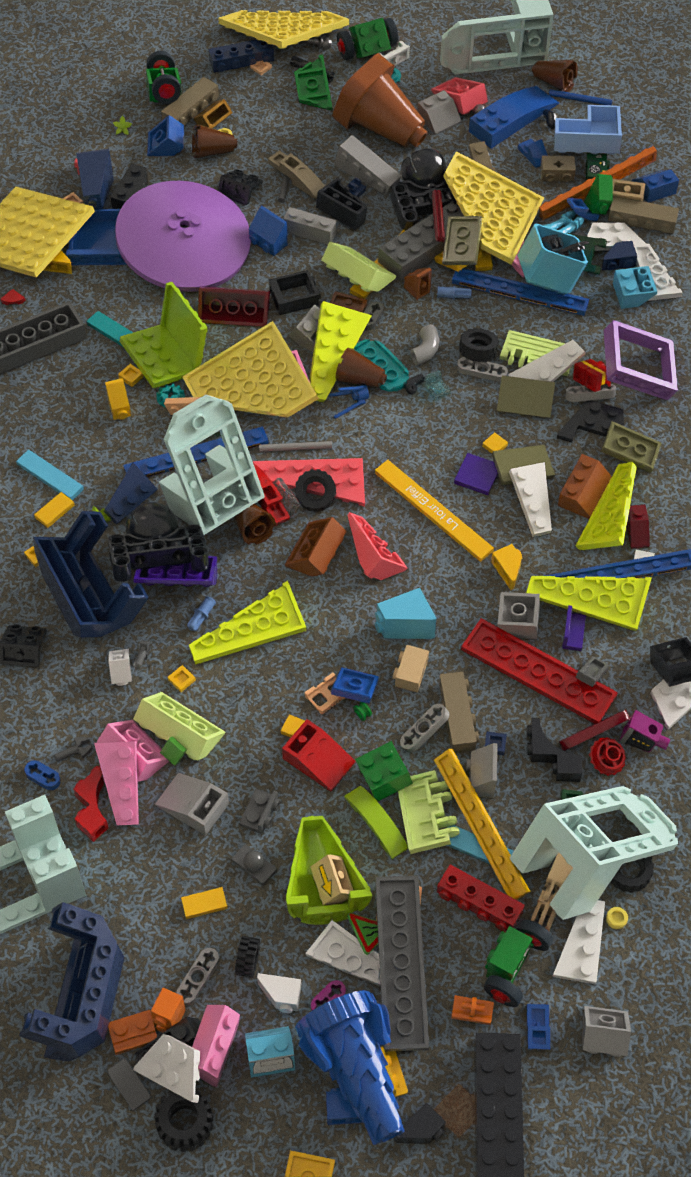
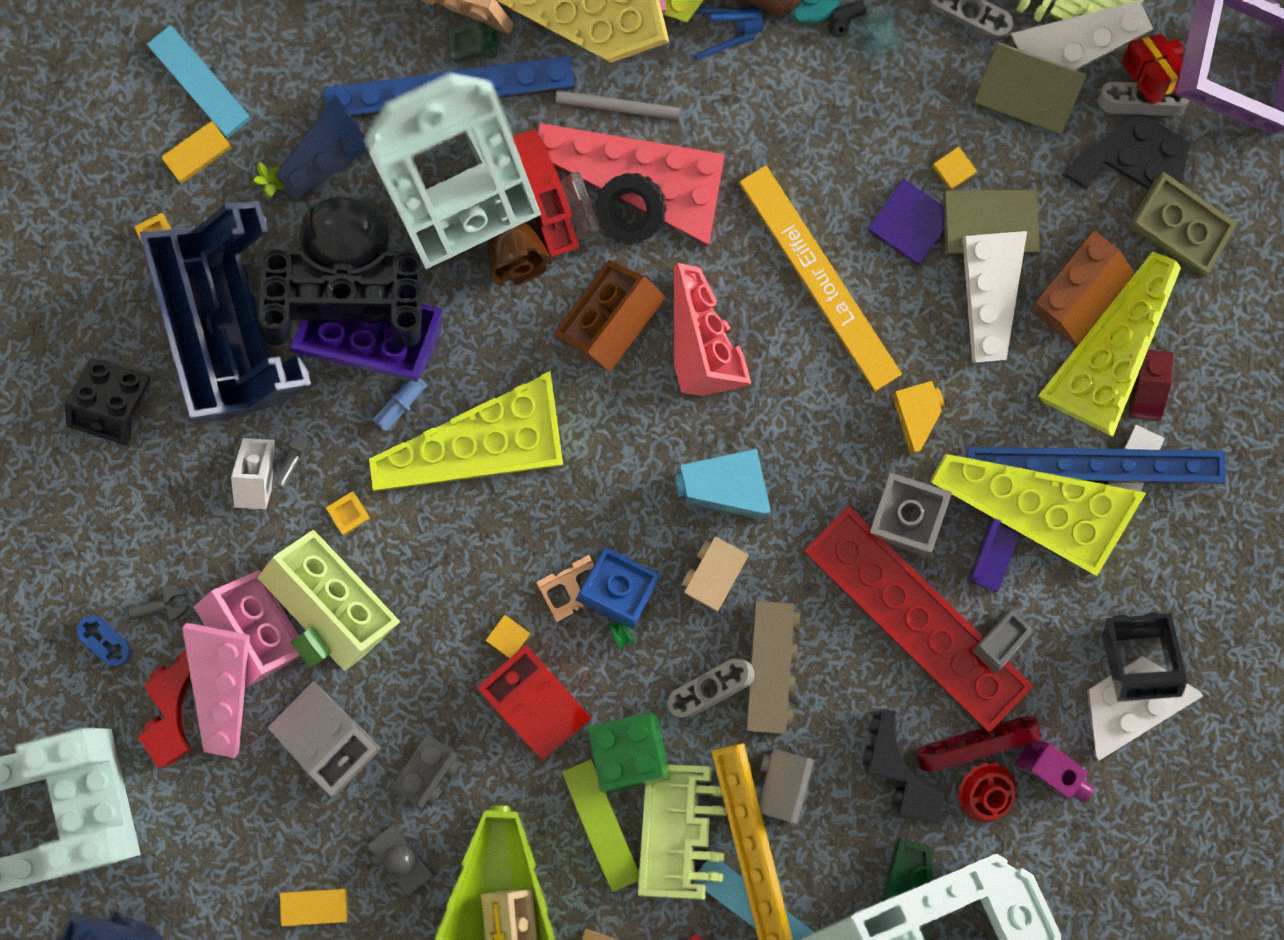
camera: 10 degrees right, 25 degrees up
(499, 738) = (815, 737): dark blue tile -> none

